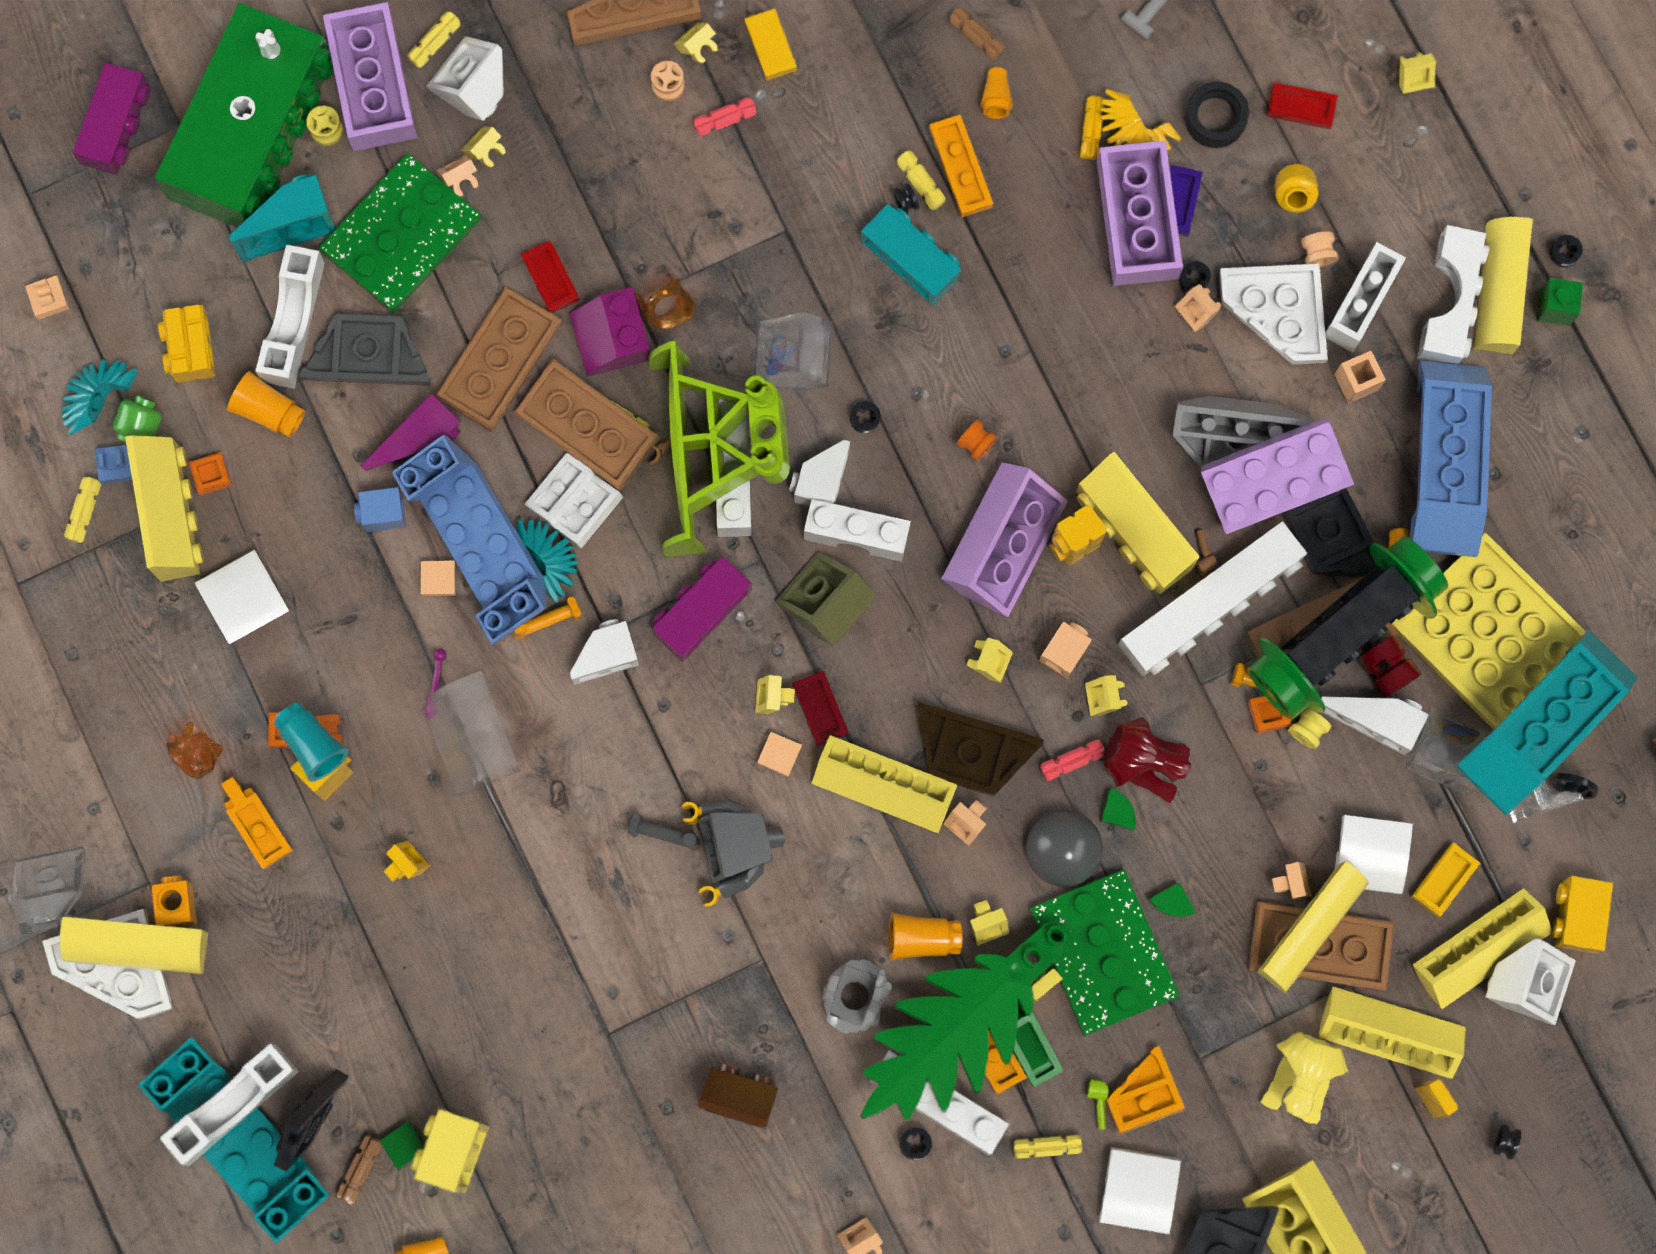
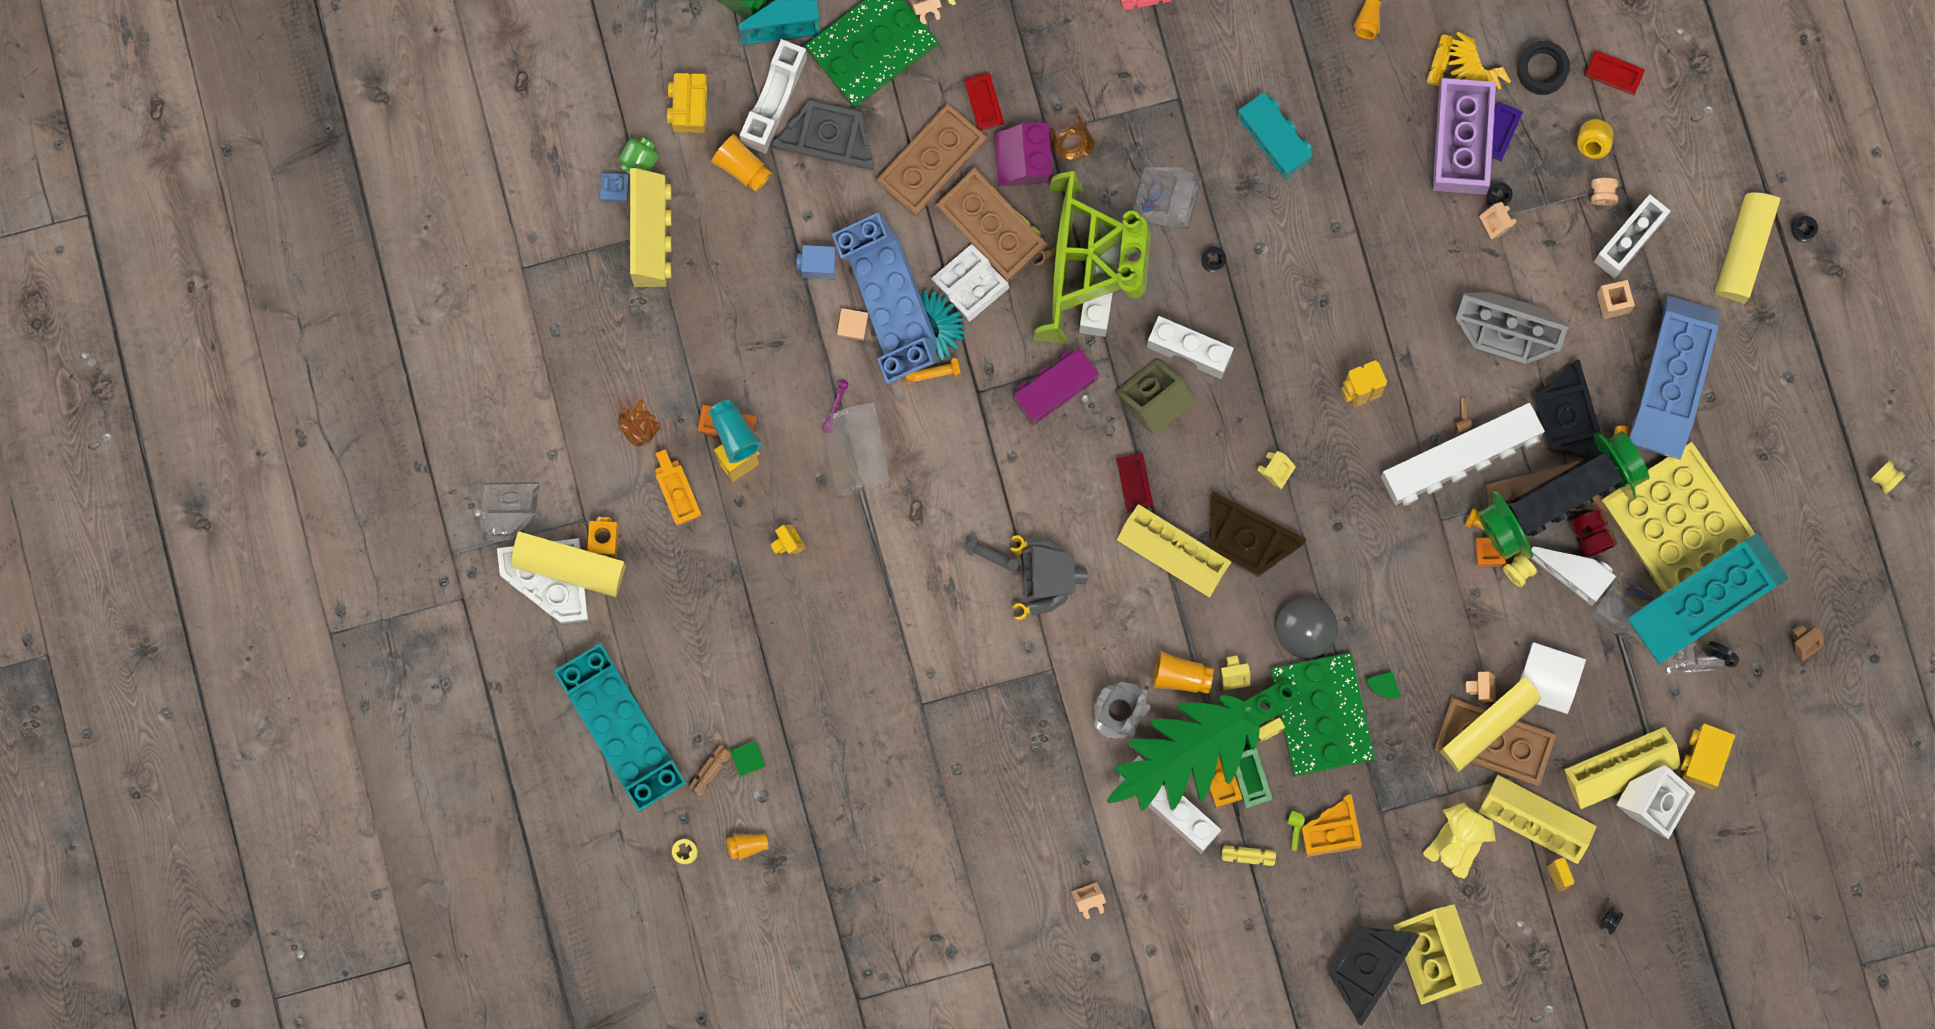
camera: 15 degrees right, 0 degrees up
(47, 297) = (584, 46): light nougat tile -> none
(82, 509) = (583, 219): light yellow axle -> none
(92, 392) = (606, 127): teal hair -> none
(210, 473) = (688, 209): orange tile -> none
(224, 1111) = (636, 692): white arch -> none
(241, 596) = (696, 310): white slope -> none
(307, 1121) = (678, 724): black wing -> none
(415, 433) = (856, 207): magenta slope -> none
(450, 1151) = (785, 766): light yellow brick -> none
(605, 653) = (973, 407): white slope -> none
(738, 1096) = (1014, 770): reddish brown slope -> none
(771, 695) = (1098, 464): light yellow tile -> none
(779, 754) = (1096, 512): light nougat tile -> none
(821, 475) = (1170, 299): white slope -> none
(905, 198) = (1279, 90): black bush -> none
(905, 1145) = (1154, 834): black bush -> none
(921, 180) = (1294, 77): light yellow axle -> none
(961, 166) = (1328, 72): light orange plate -> none
(966, 822) = (1233, 592): light nougat tile -> none
(977, 440) = (1299, 294): orange wheel -> none
(1005, 538) = (1306, 376): lavender slope -> none
(1066, 649) = (1338, 472): light nougat brick -> none
(1072, 760) = (1326, 560): coral axle -> none
(1104, 695) = (1361, 513): light yellow tile -> none
(1119, 811) = (1355, 607): green tile -> none
(1137, 524) = (1413, 384): light yellow slope -> none
(1137, 753) = (1379, 564): dark red piece -> none
(1140, 1190) = (1314, 902): white slope -> none
(1277, 475) = (1532, 365): lavender brick -> none
(1280, 307) = (1563, 231): white plate -> none
(1417, 73) = (1712, 63): light yellow tile -> none
(1445, 879) = (1604, 709): yellow tile -> none
(1460, 258) = (1716, 219): white arch -> none
(1560, 301) = (1790, 268): green brick -> none

